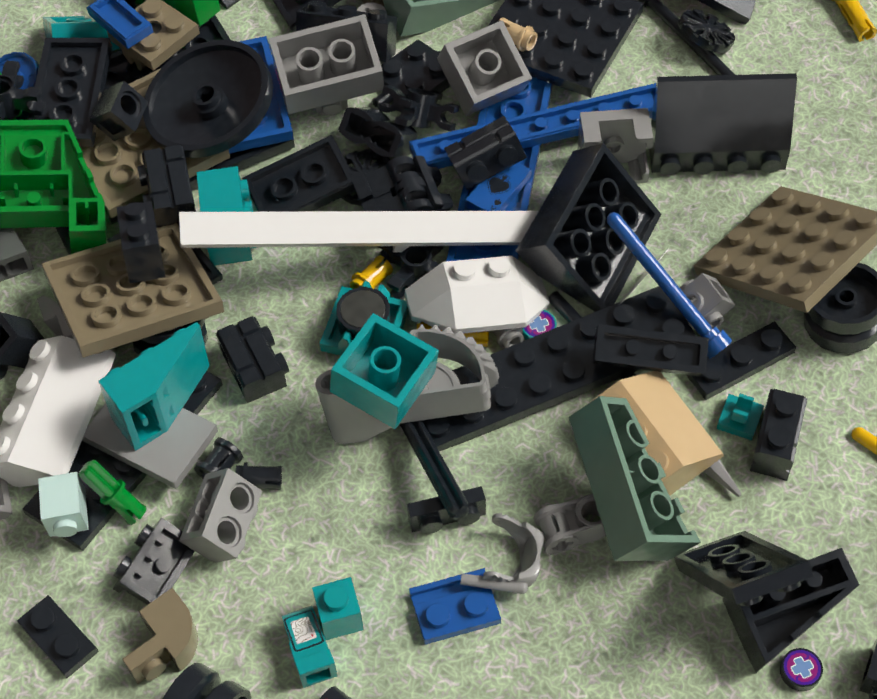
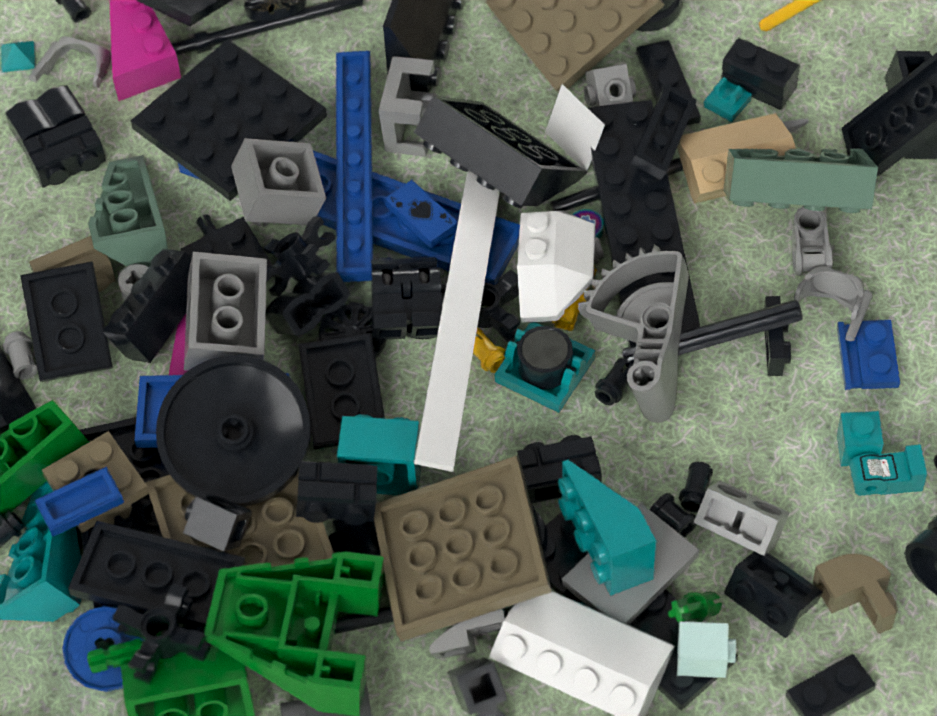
camera: 75 degrees left, 0 degrees up
(140, 242) = (416, 519): black brick -> none
(383, 370) = (661, 317): teal brick -> none
(485, 152) = (388, 205): black brick -> none
(523, 37) = (231, 148): tan pin -> none
(717, 339) = (648, 90): blue piece -> none

